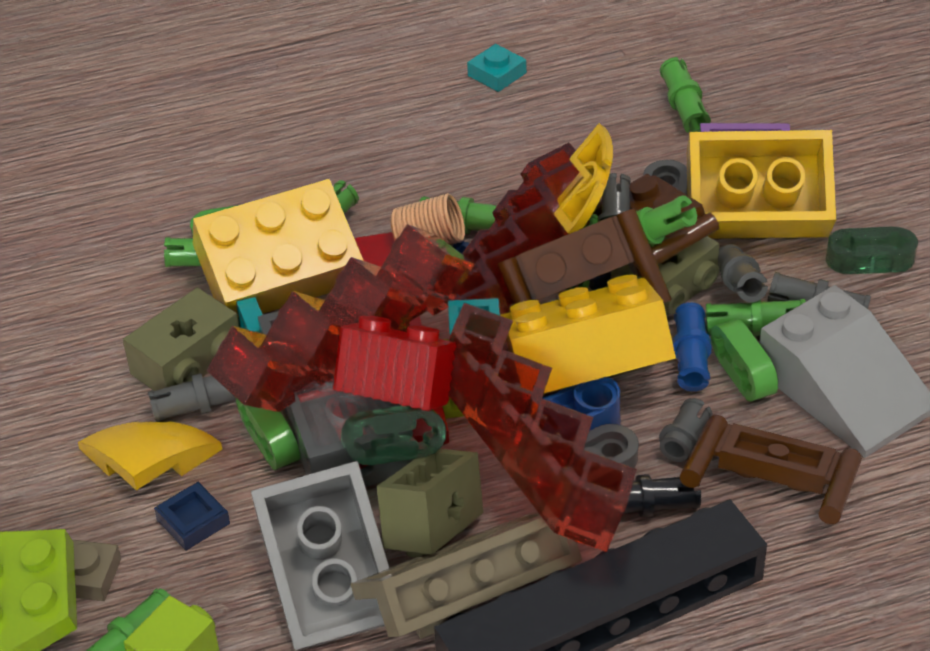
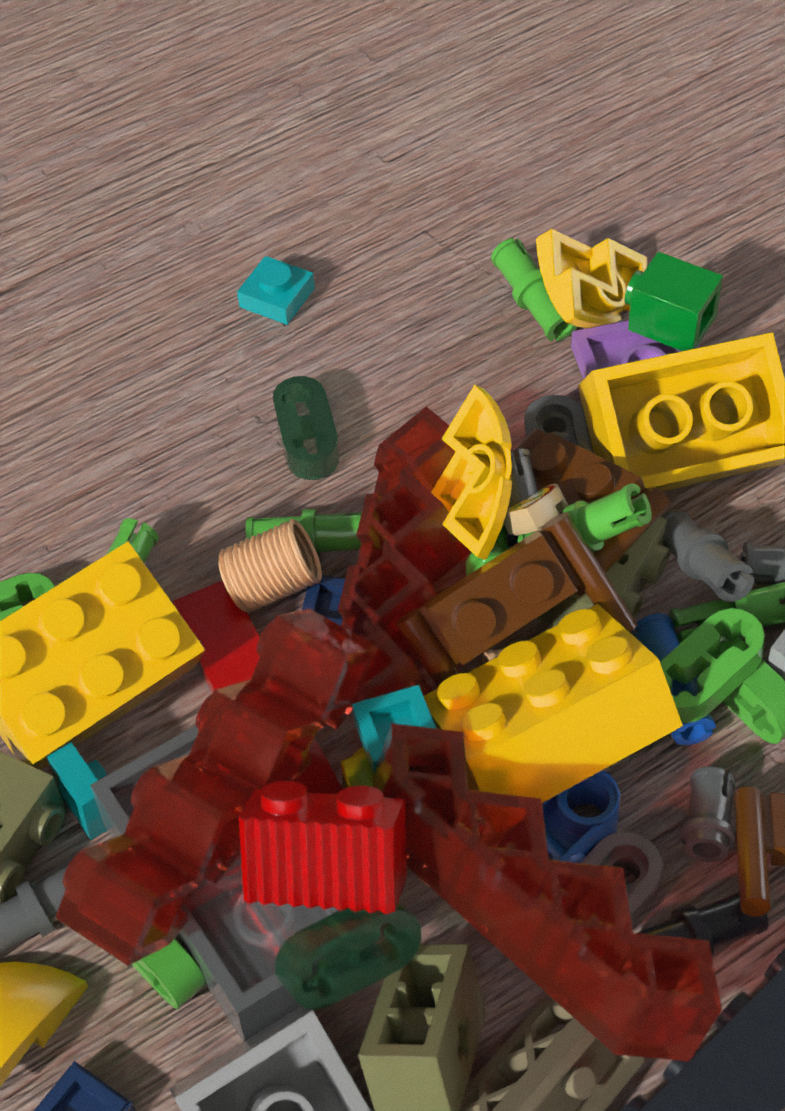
camera: 15 degrees left, 10 degrees up
(479, 153) = (296, 428): none -> clear green beam
(616, 206) = (535, 511): none -> tan tile
(714, 331) = (718, 675): none -> bright green beam
(726, 97) = (586, 281): none -> yellow brick
(778, 106) = (673, 301): none -> green brick

